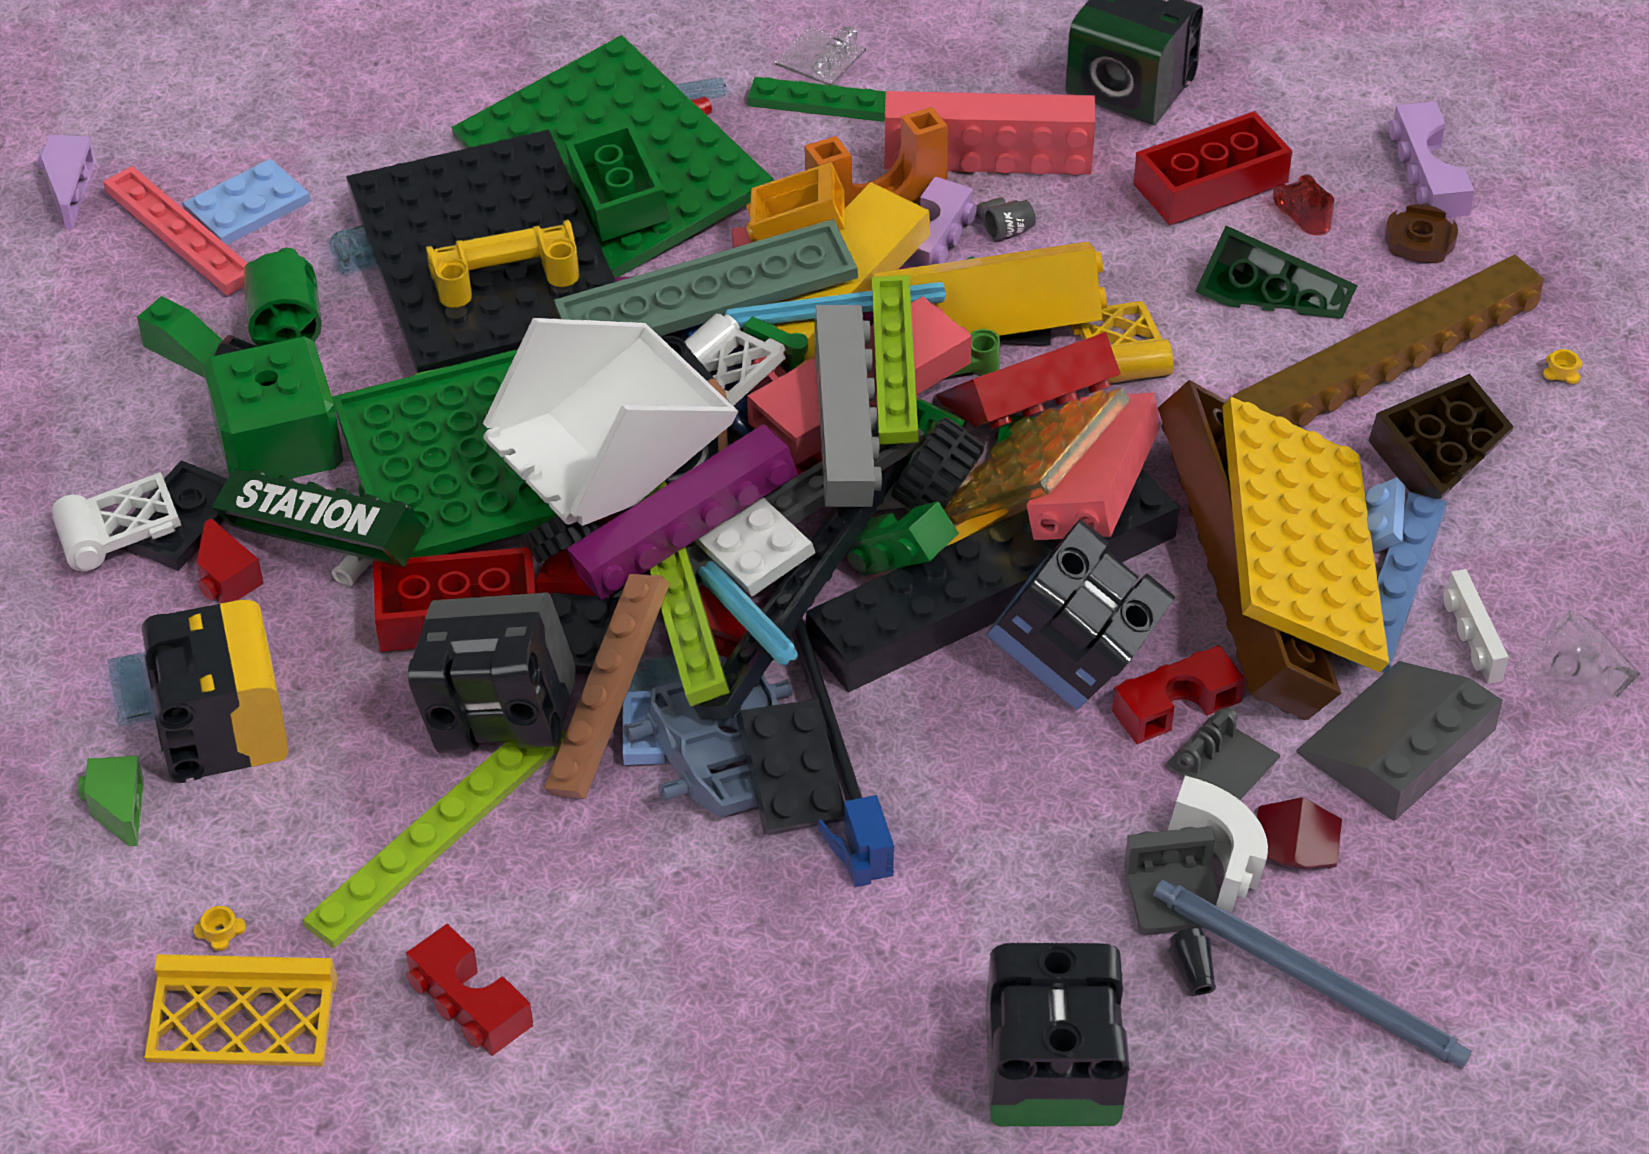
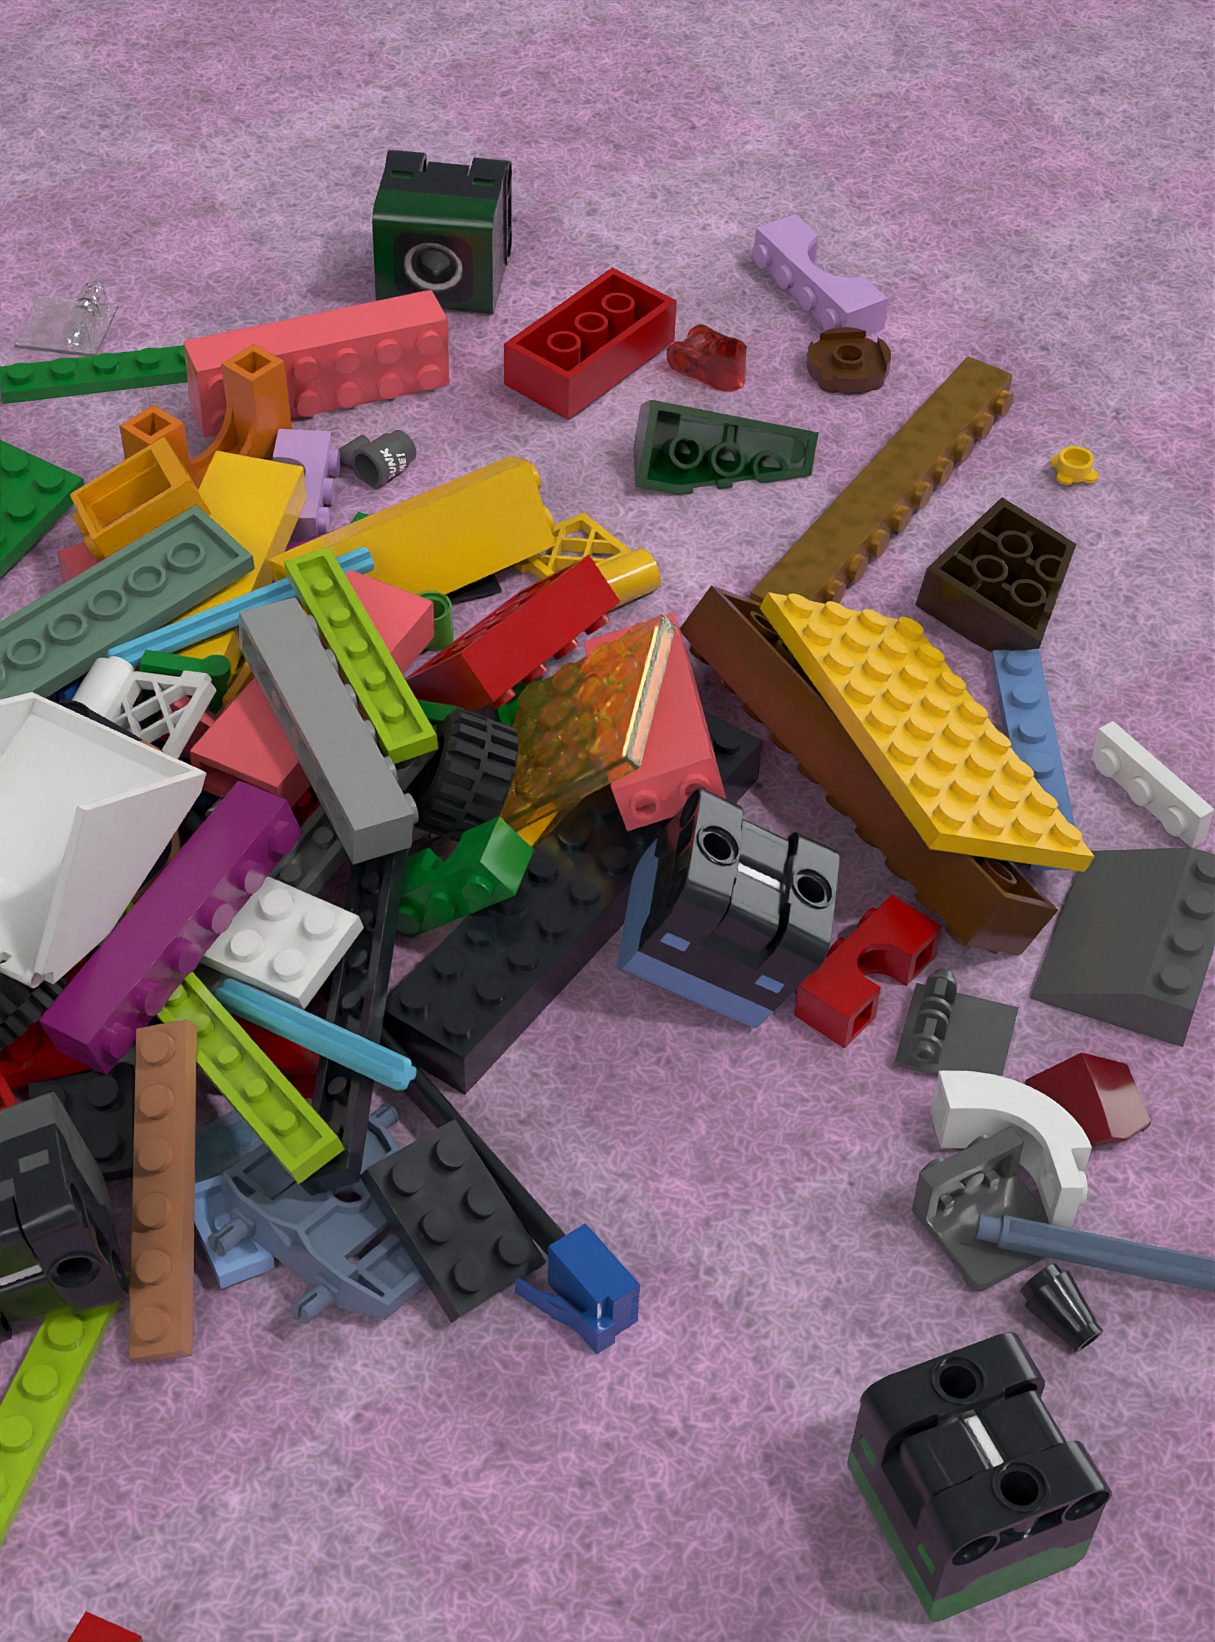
camera: 25 degrees left, 0 degrees up
(1385, 513) = (985, 680): light blue plate -> none

